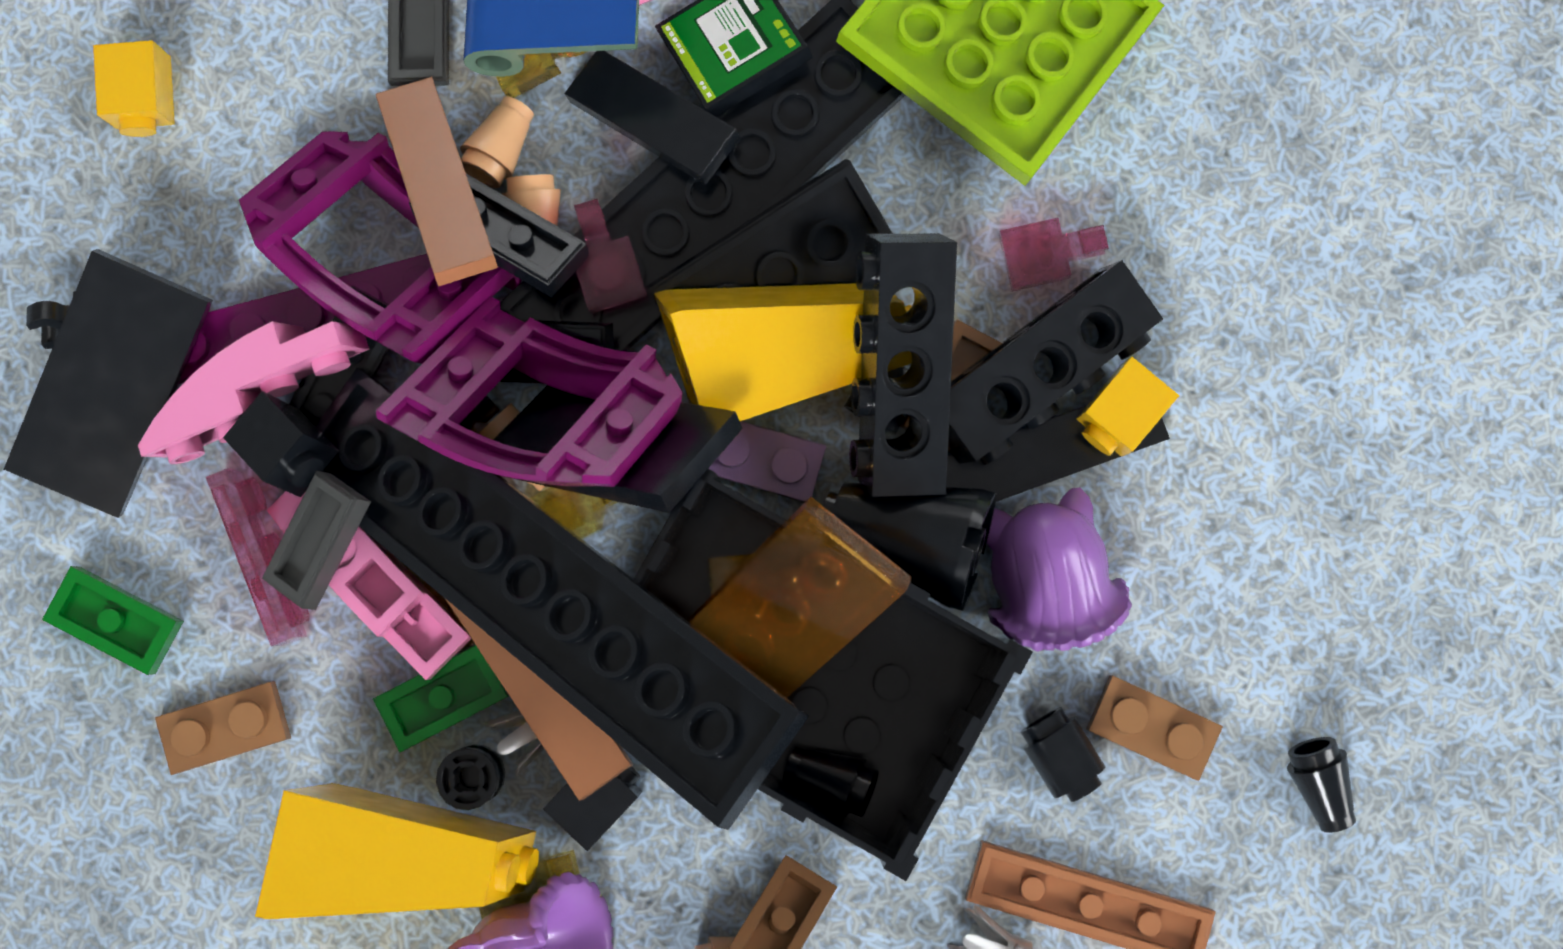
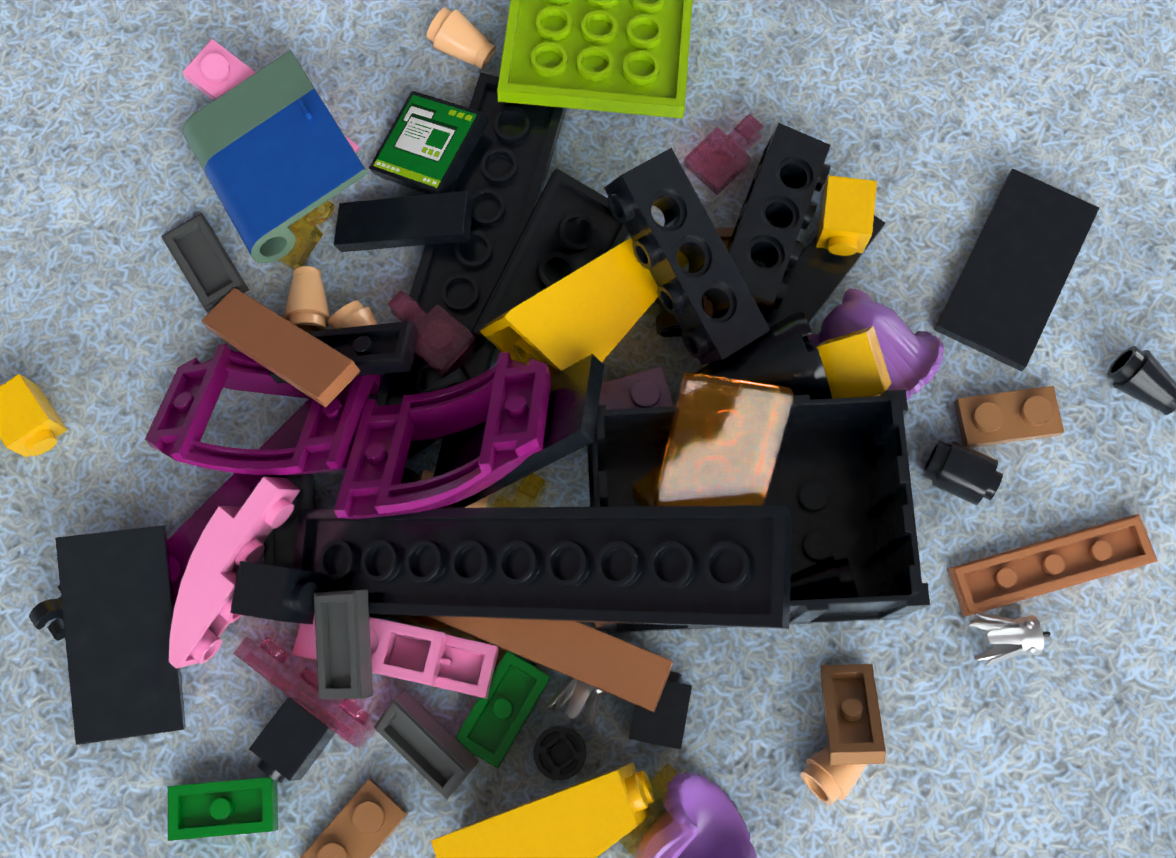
camera: 30 degrees left, 10 degrees down
(211, 600) = (290, 742): none -> black brick
(345, 683) = (426, 744): none -> dark grey tile
(1010, 586) = (854, 365): none -> yellow brick
(1277, 576) = (1016, 269): none -> black tile

